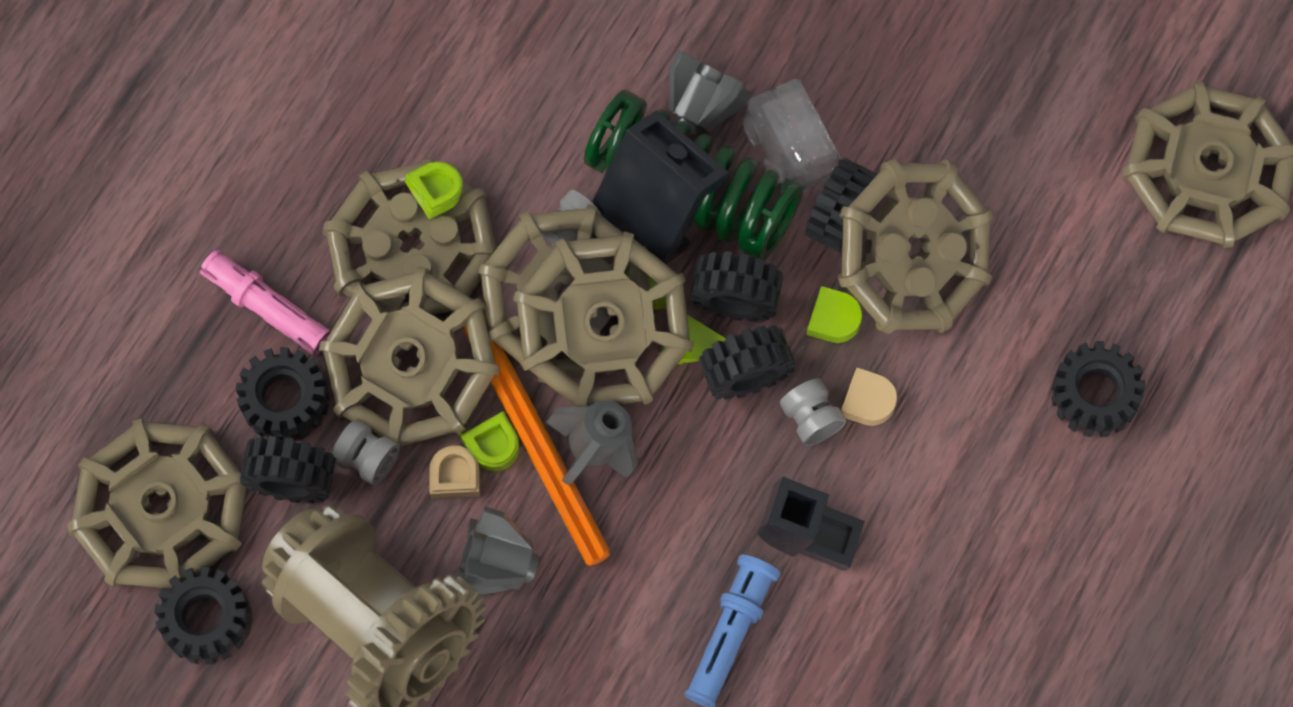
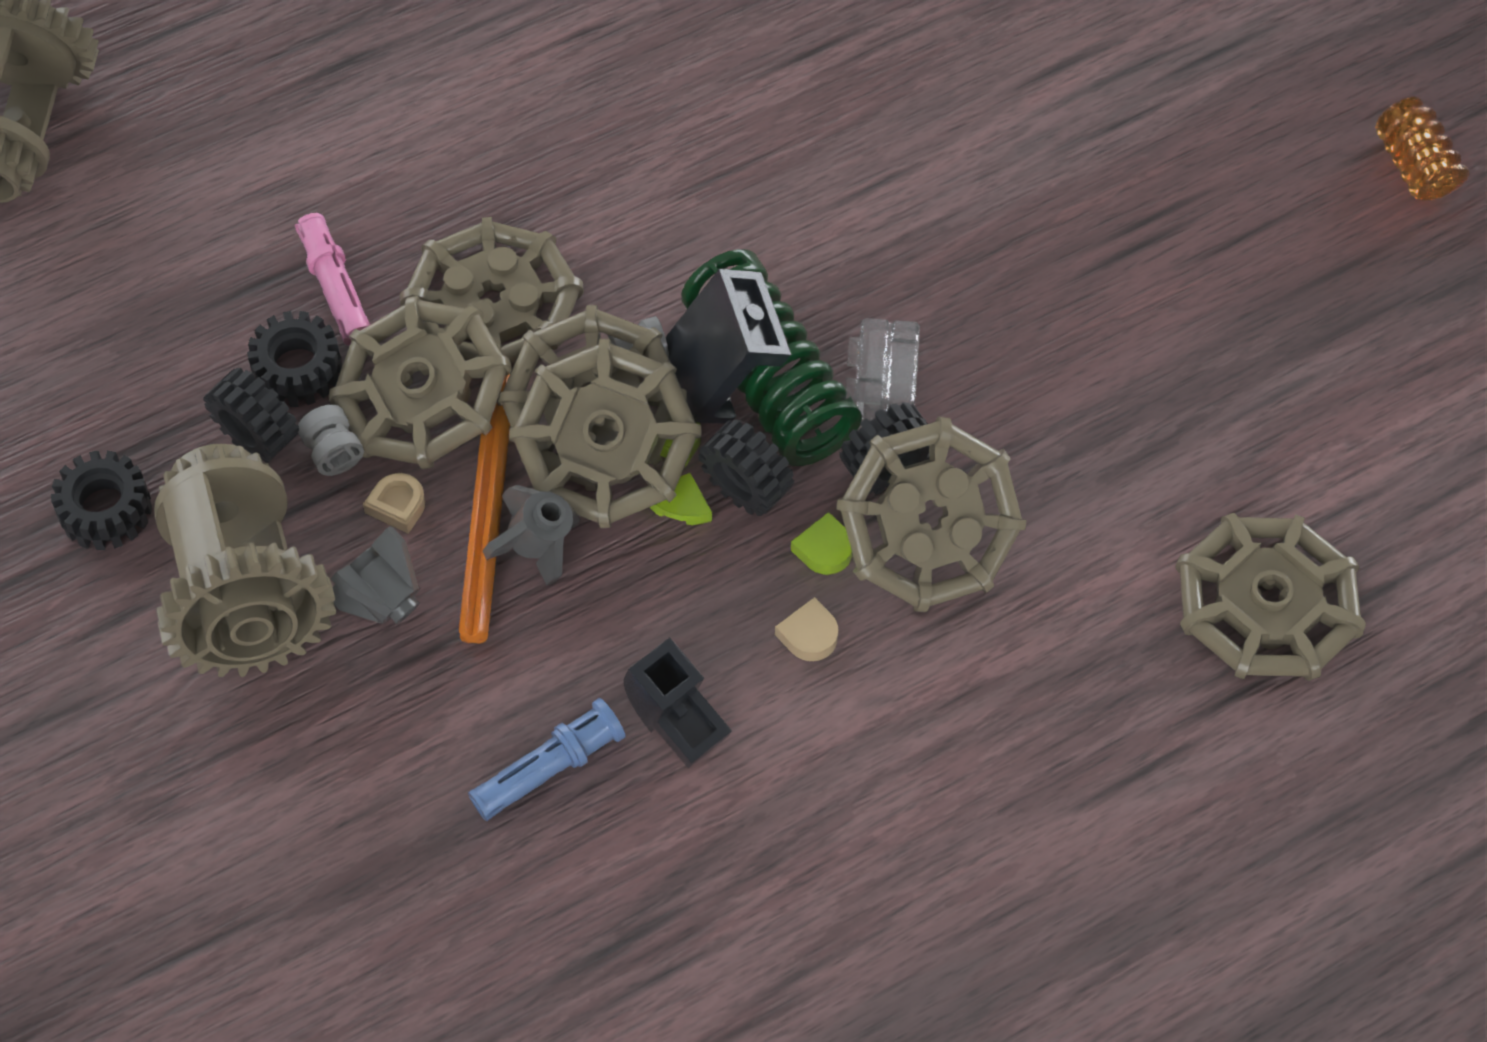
camera: 25 degrees right, 10 degrees down
(156, 532) = (133, 417): dark tan plate -> none
(435, 187) = (539, 256): lime tile -> none
(493, 443) = (448, 494): lime tile -> none
(702, 94) = (823, 298): dark grey brick -> none
(747, 362) = (712, 535): black tyre -> none
(812, 412) = (747, 613): light grey wheel -> none
(1105, 362) = (1036, 706): black tyre -> none

